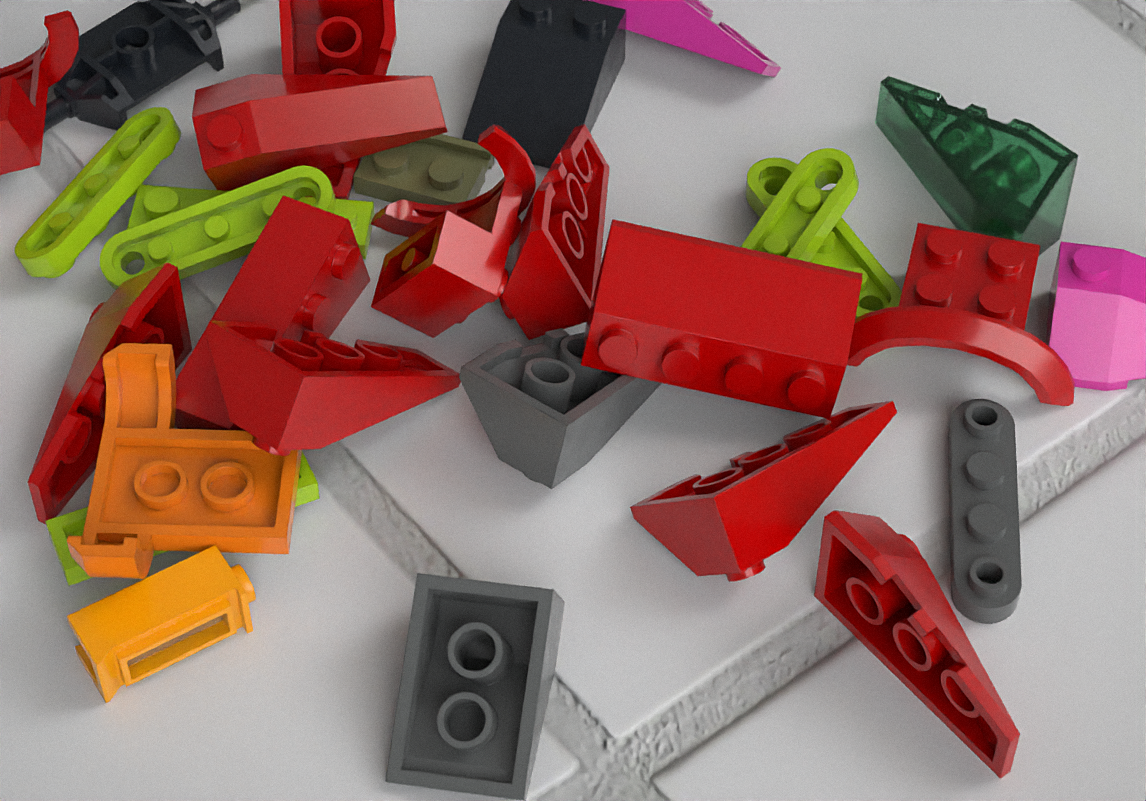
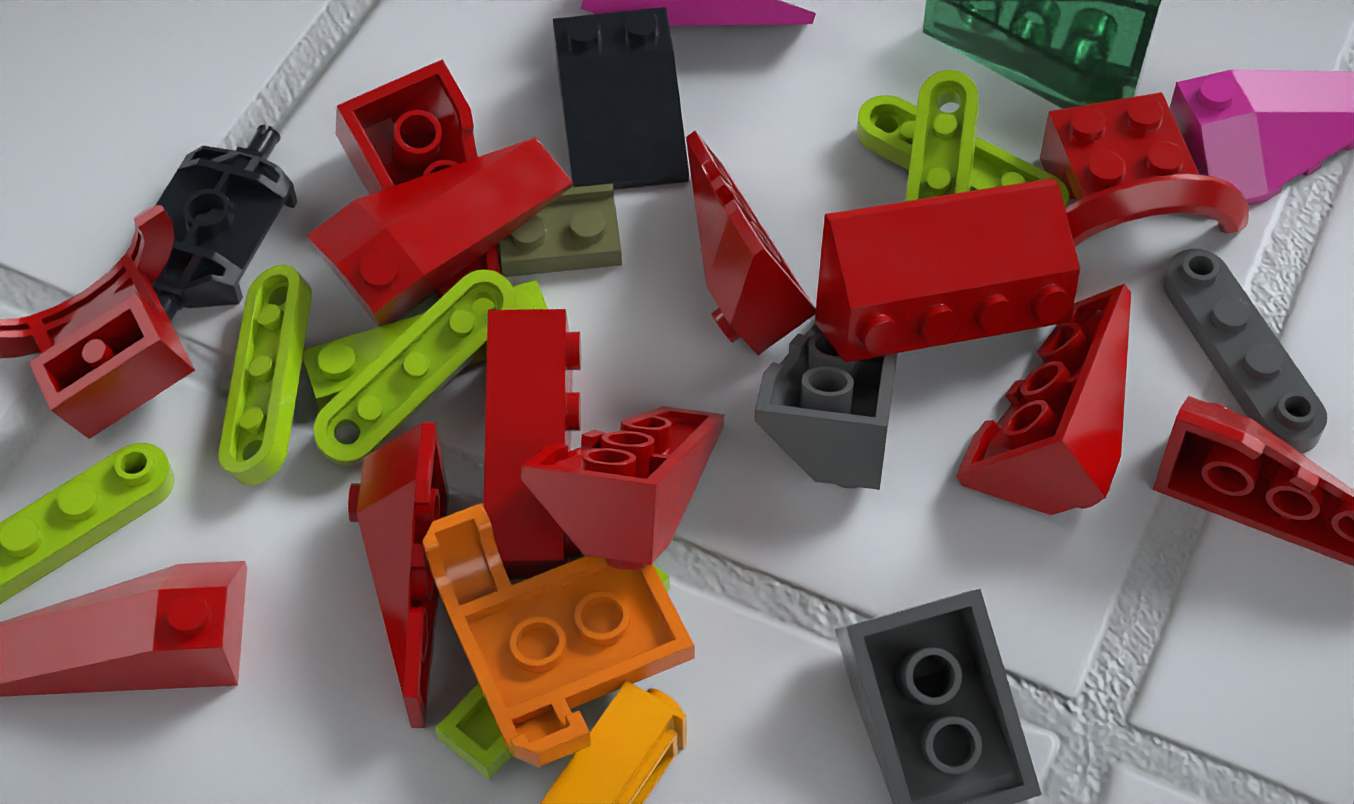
camera: 25 degrees left, 5 degrees up
(456, 249) = (672, 288): red piece -> none

